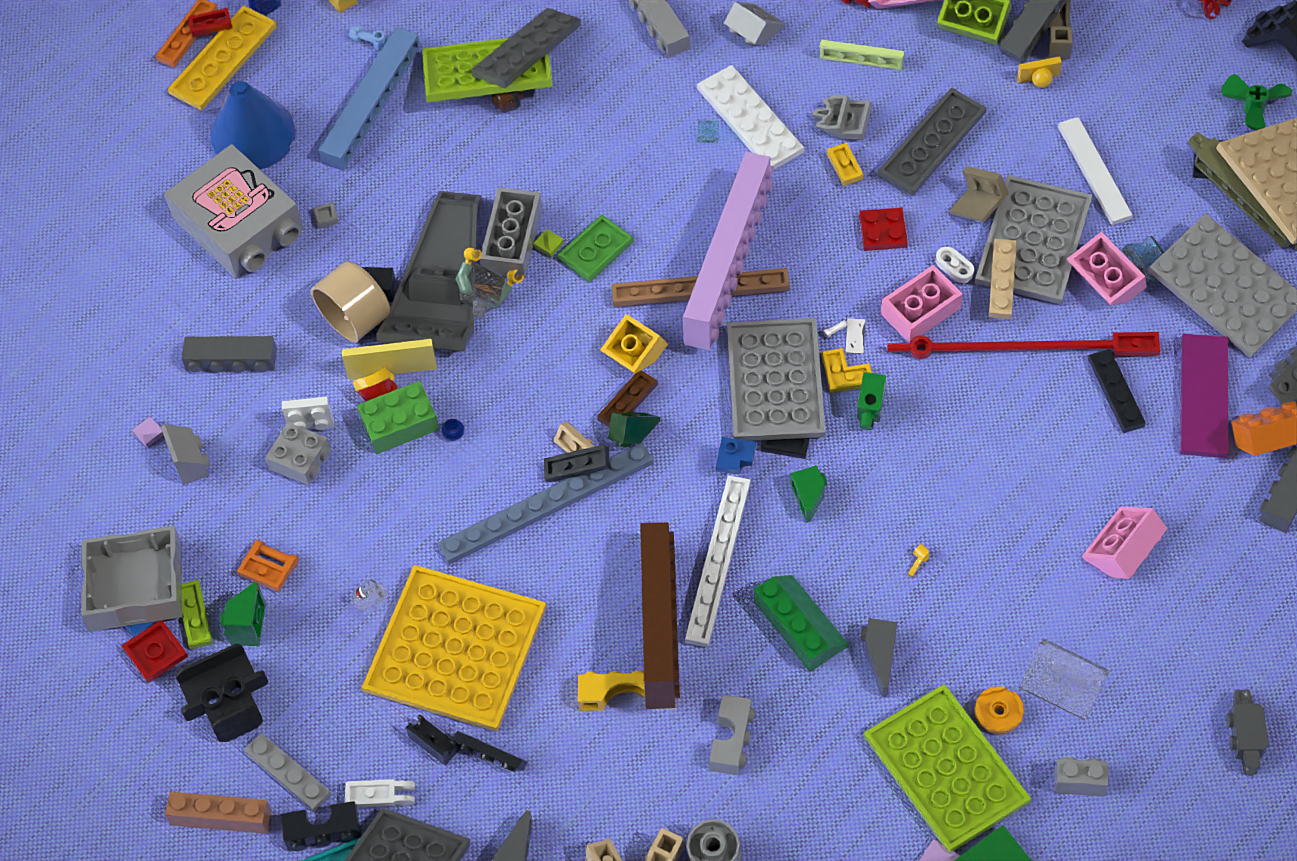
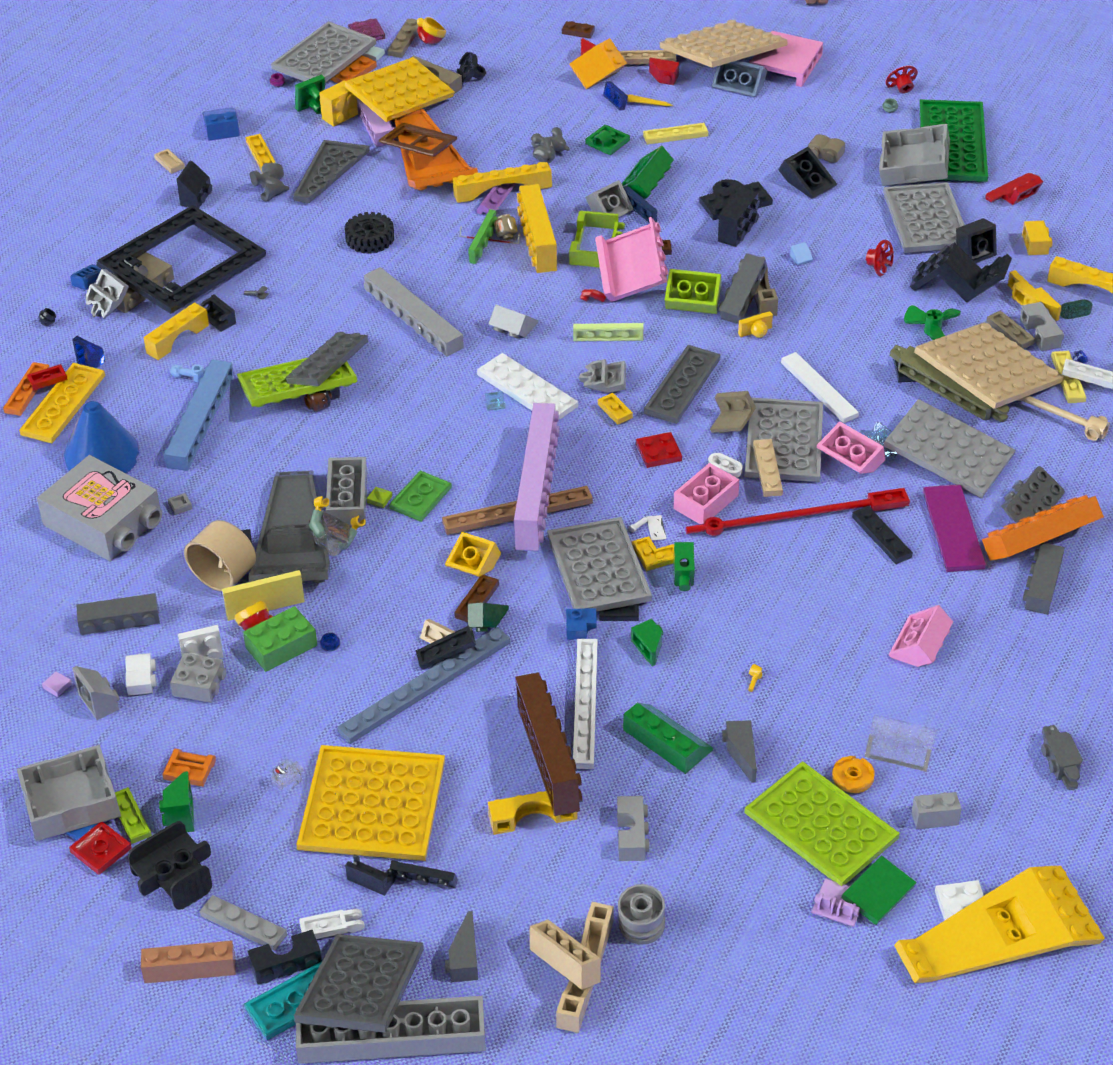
camera: 15 degrees left, 15 degrees down
(237, 436) = (140, 674): none -> white brick

